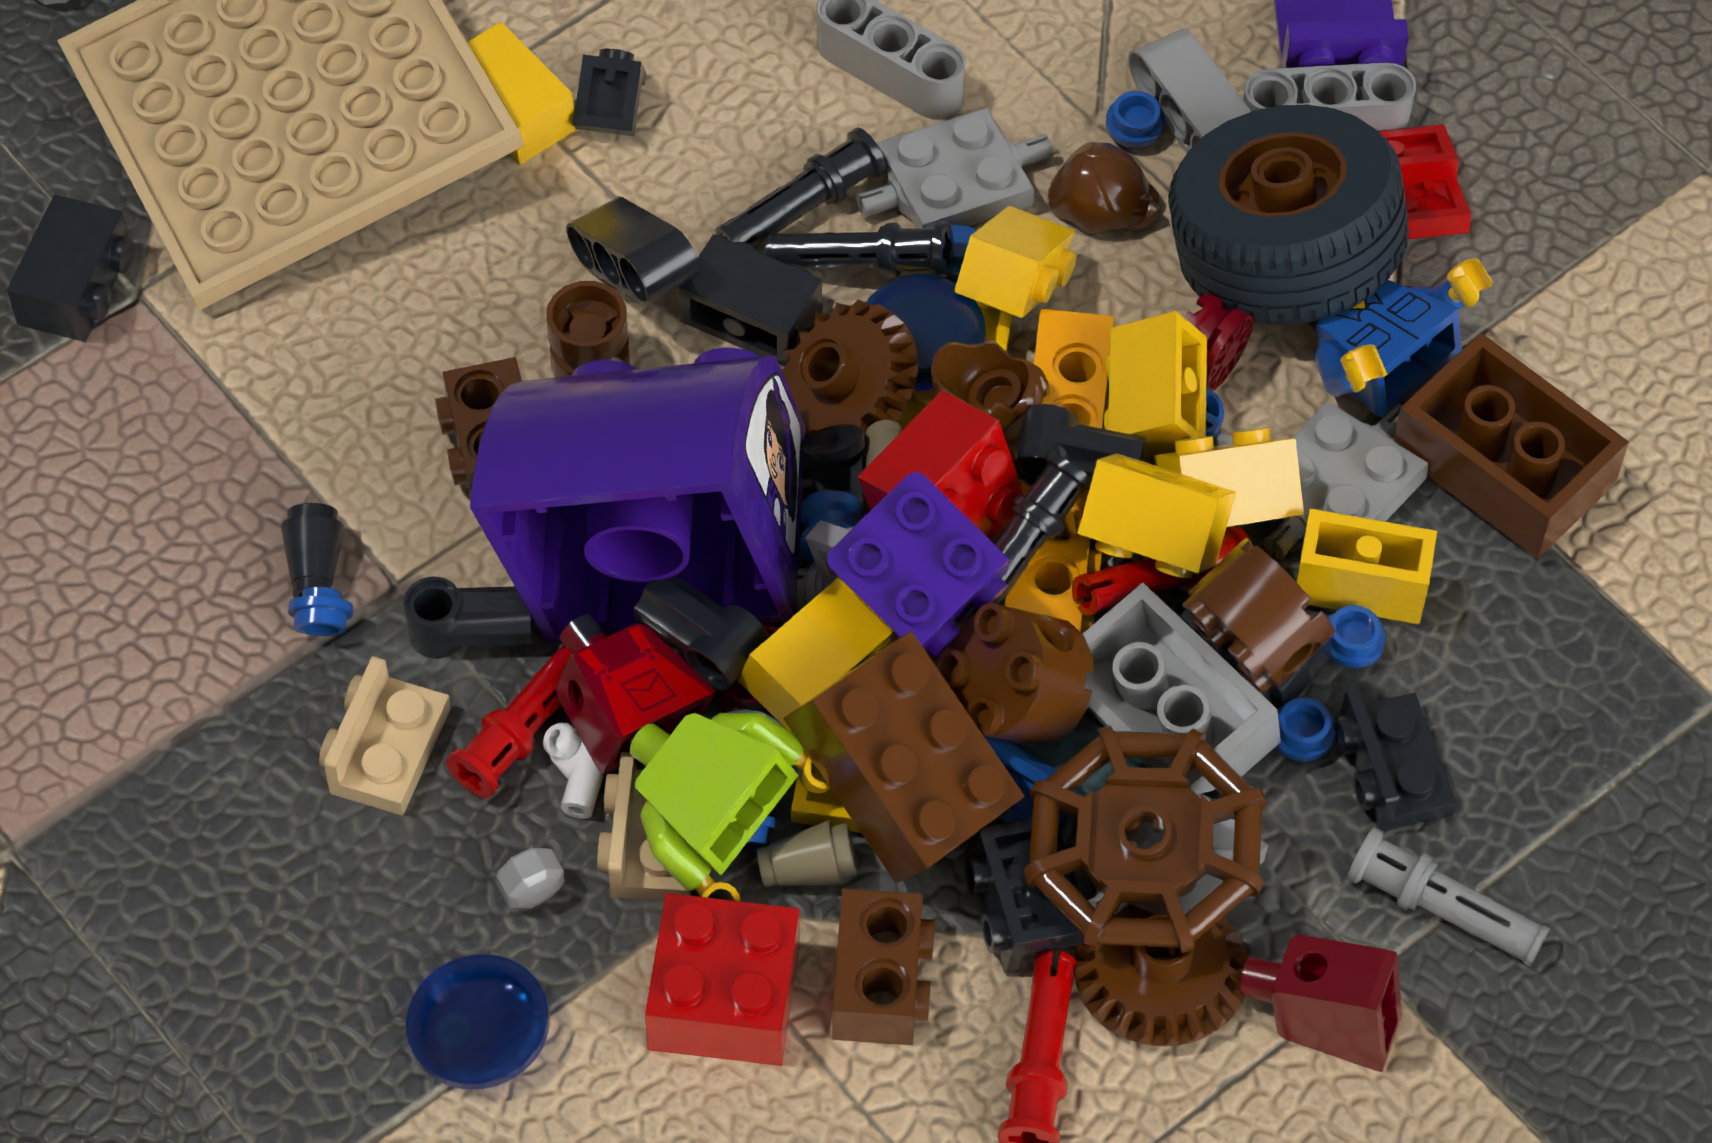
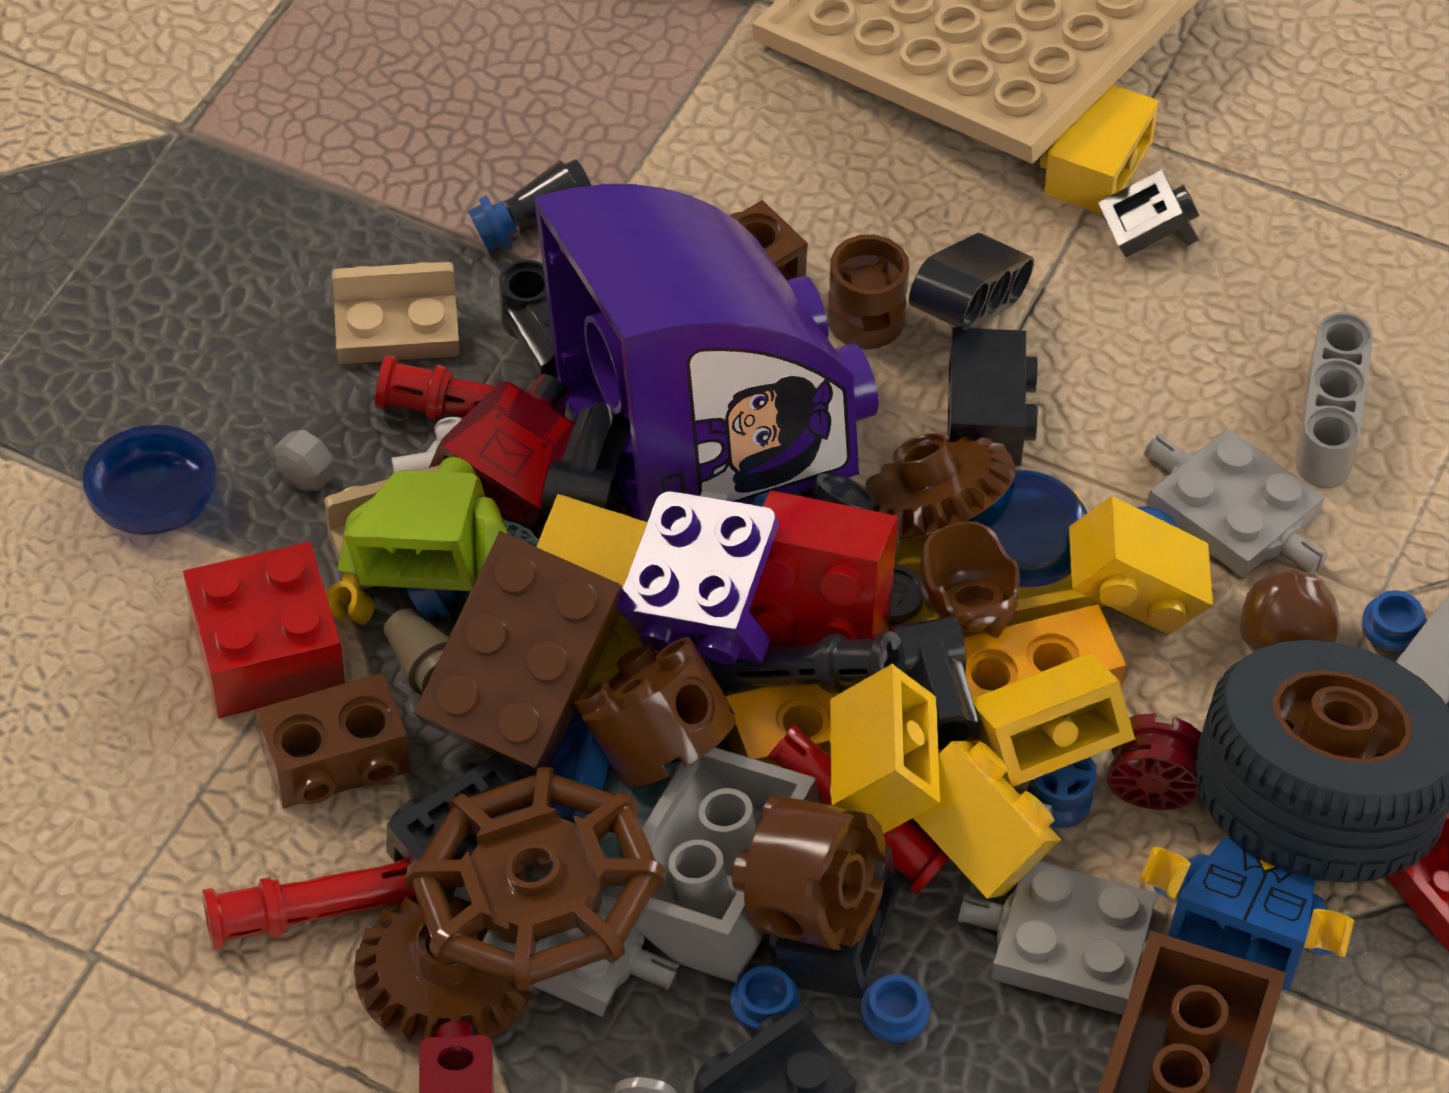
camera: 65 degrees right, 5 degrees down
(822, 181) = (1157, 402): black pin -> none
(887, 250) = (1096, 468): black pin -> none
(1366, 565) = (965, 977): yellow brick -> none

